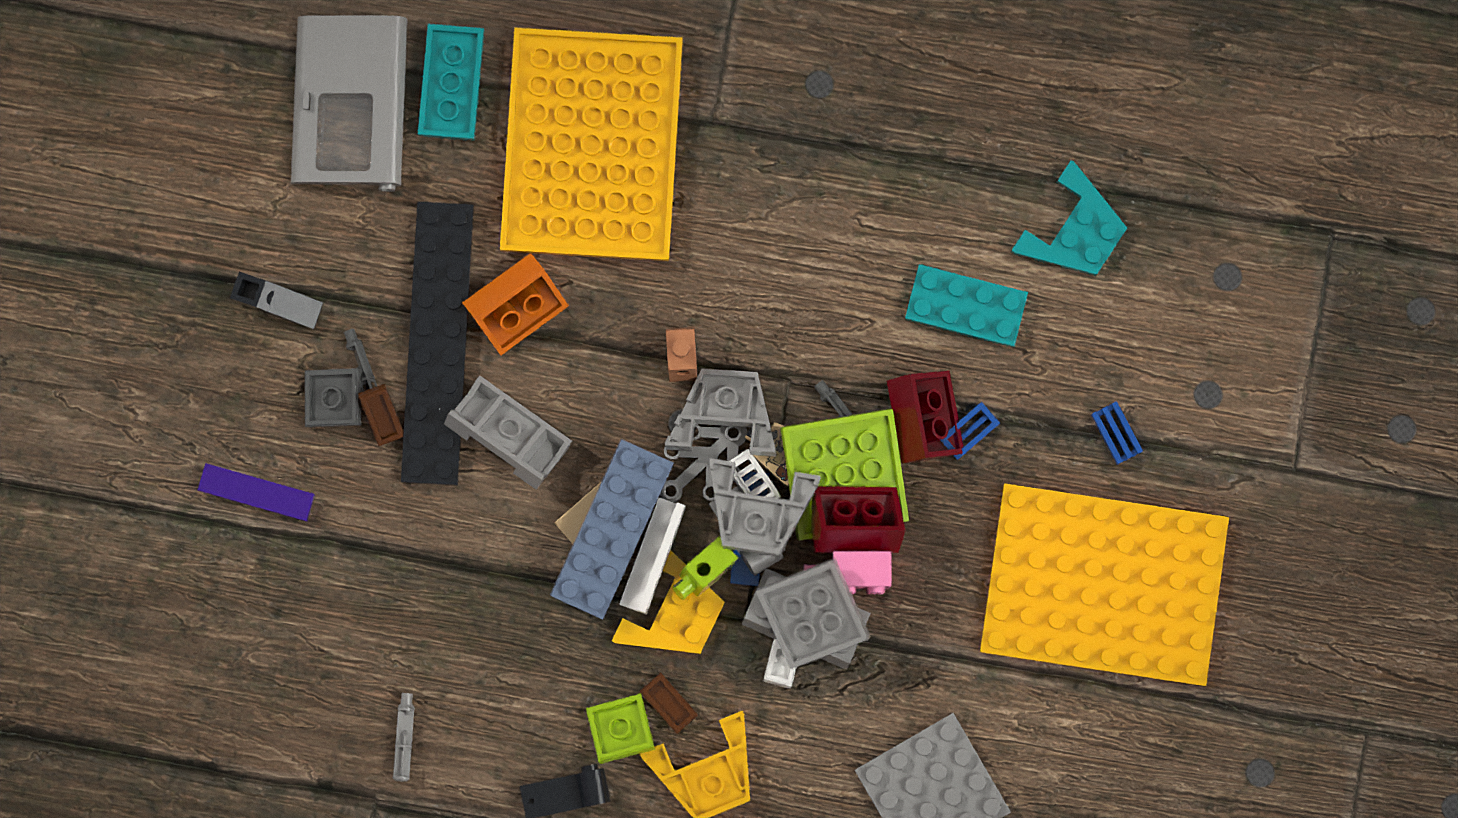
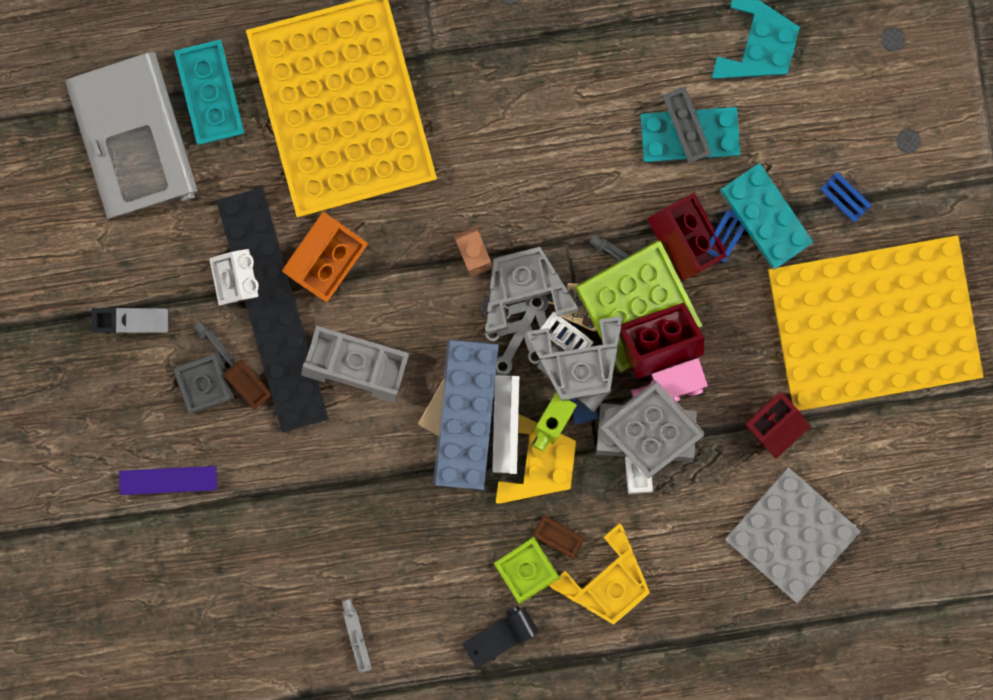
camera: 15 degrees left, 5 degrees up
(407, 291) = (234, 277): none -> white plate
(956, 660) = (777, 424): none -> dark red slope
(965, 292) = (686, 125): none -> dark grey plate
(1021, 424) = (766, 216): none -> teal plate

